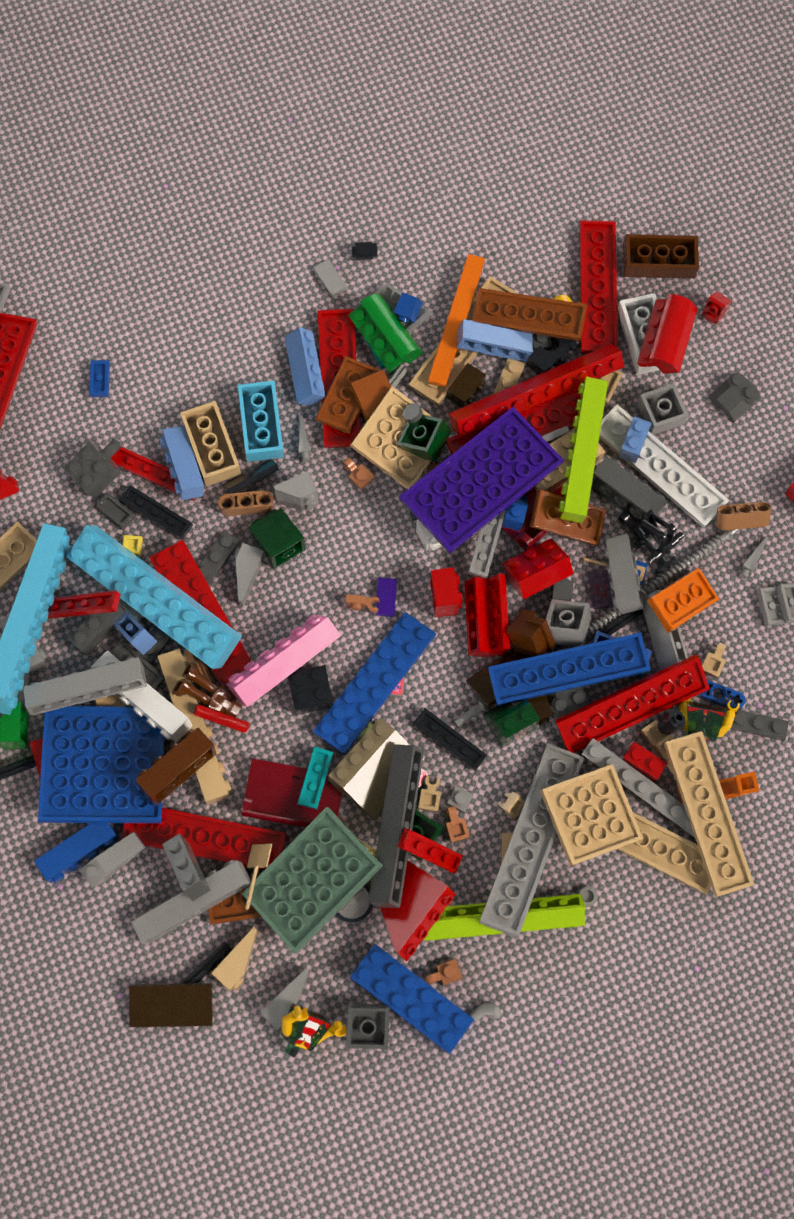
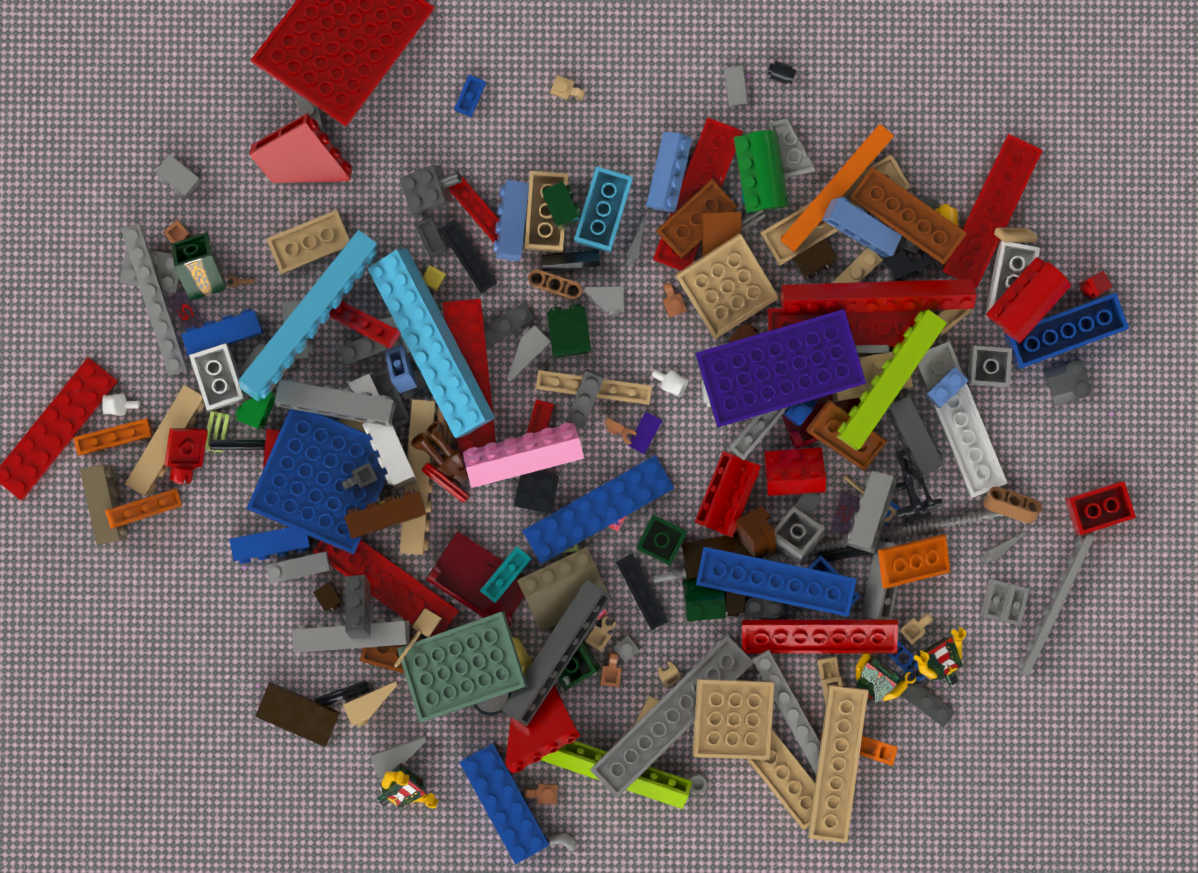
camera: 30 degrees right, 15 degrees up
(138, 744) = (362, 476): none -> dark grey plate
(154, 876) = (328, 597): none -> dark brown brick
(182, 339) = (565, 88): none -> tan plate
(220, 424) = (561, 206): none -> dark green brick
(283, 622) = (540, 416): none -> red tile
(317, 587) = (584, 398): none -> dark grey plate
(321, 576) = (609, 388): none -> tan plate
(367, 1026) = (456, 809): dark grey slope -> none
(390, 542) = (671, 382): none -> white piece
(408, 308) = (793, 158): blue brick -> none
(412, 412) = (748, 270): dark grey tile -> none
(425, 437) = (749, 296): dark green slope -> none
(429, 850) = (576, 687): red tile -> none
(445, 592) = (699, 455): red brick -> none
(446, 682) = (661, 539): none -> dark green brick
(628, 294) = (1015, 235): none -> tan tile
(644, 761) = (804, 691): red brick -> none
(660, 256) = (1067, 208): reddish brown brick -> none
(671, 722) = (846, 668): black brick -> none
(714, 352) = (1069, 331): none -> blue brick
(753, 674) = (942, 658): none -> torso

